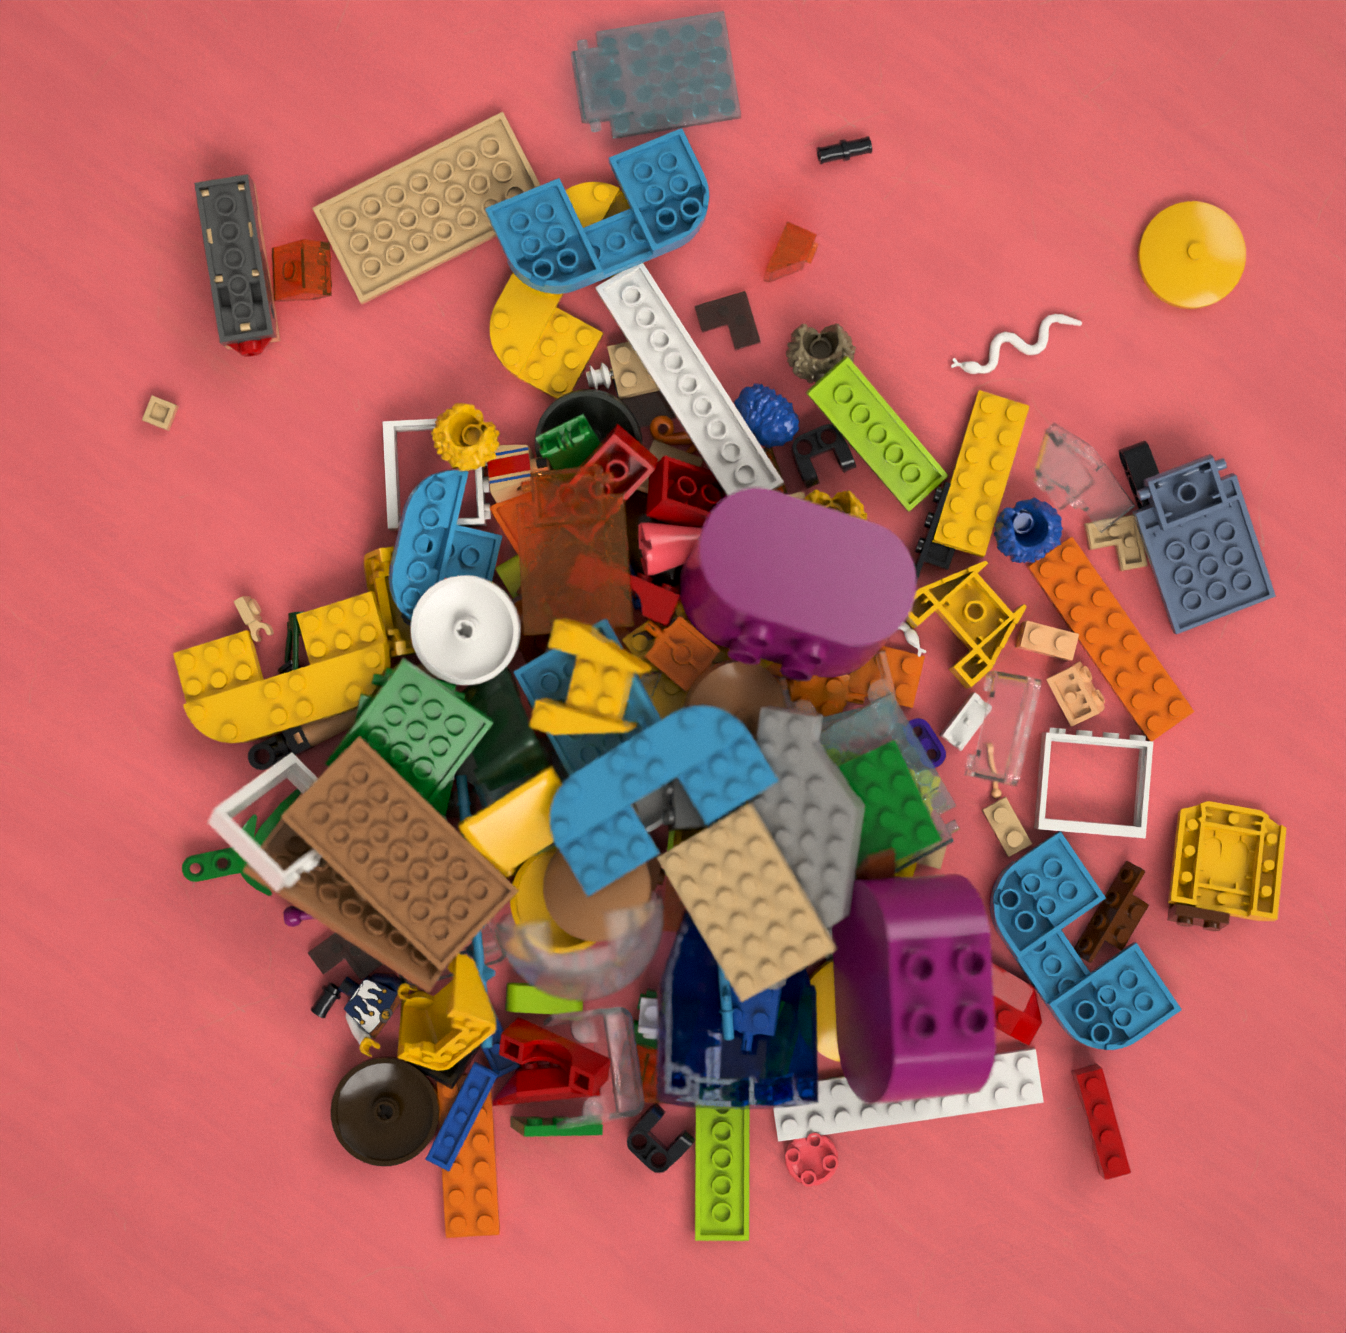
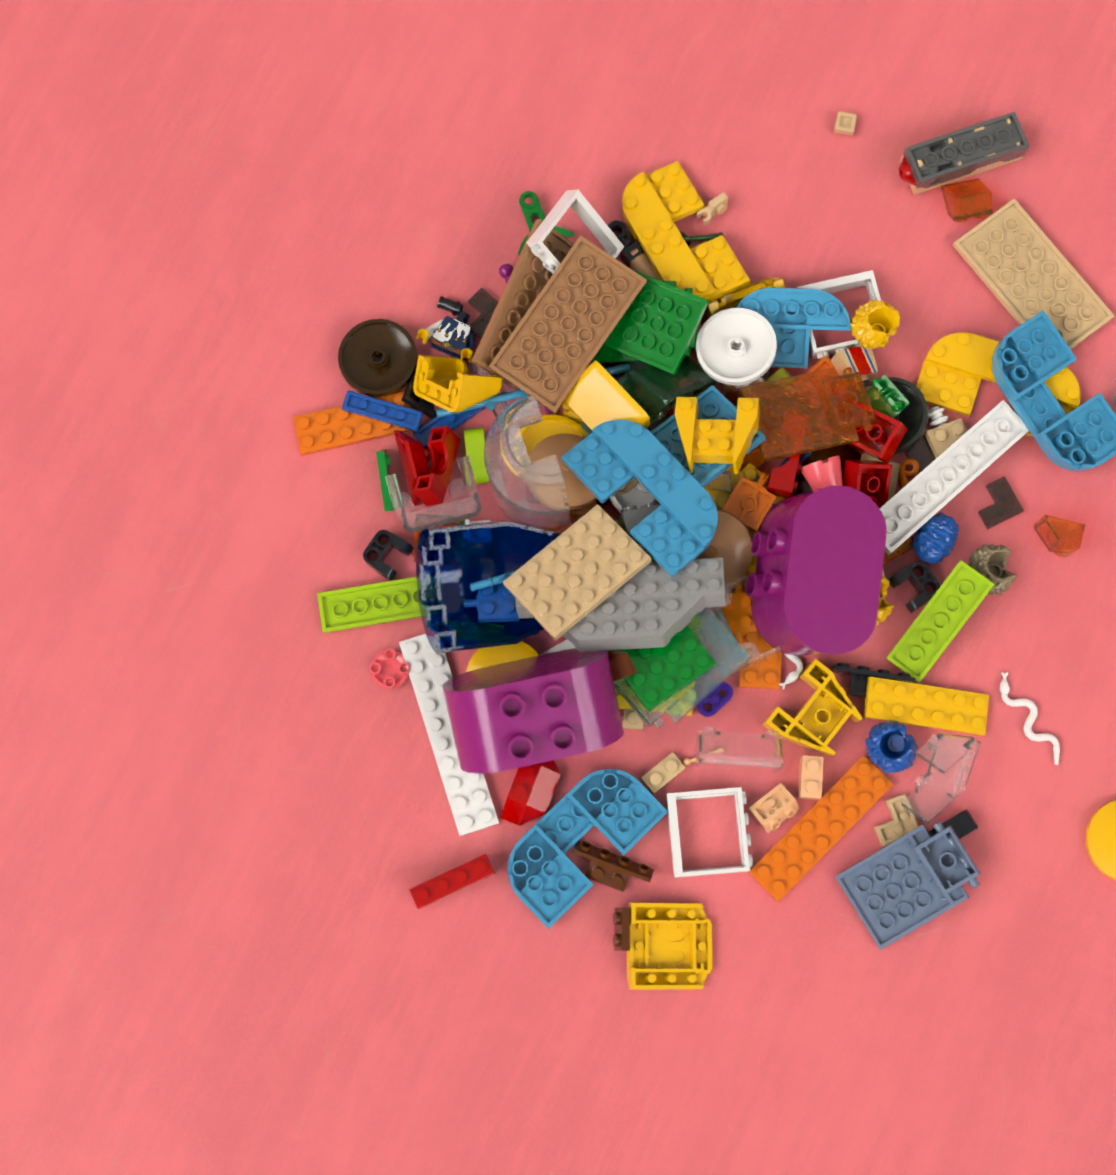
camera: 90 degrees right, 10 degrees down
(965, 722) = (733, 723): white hinge -> none

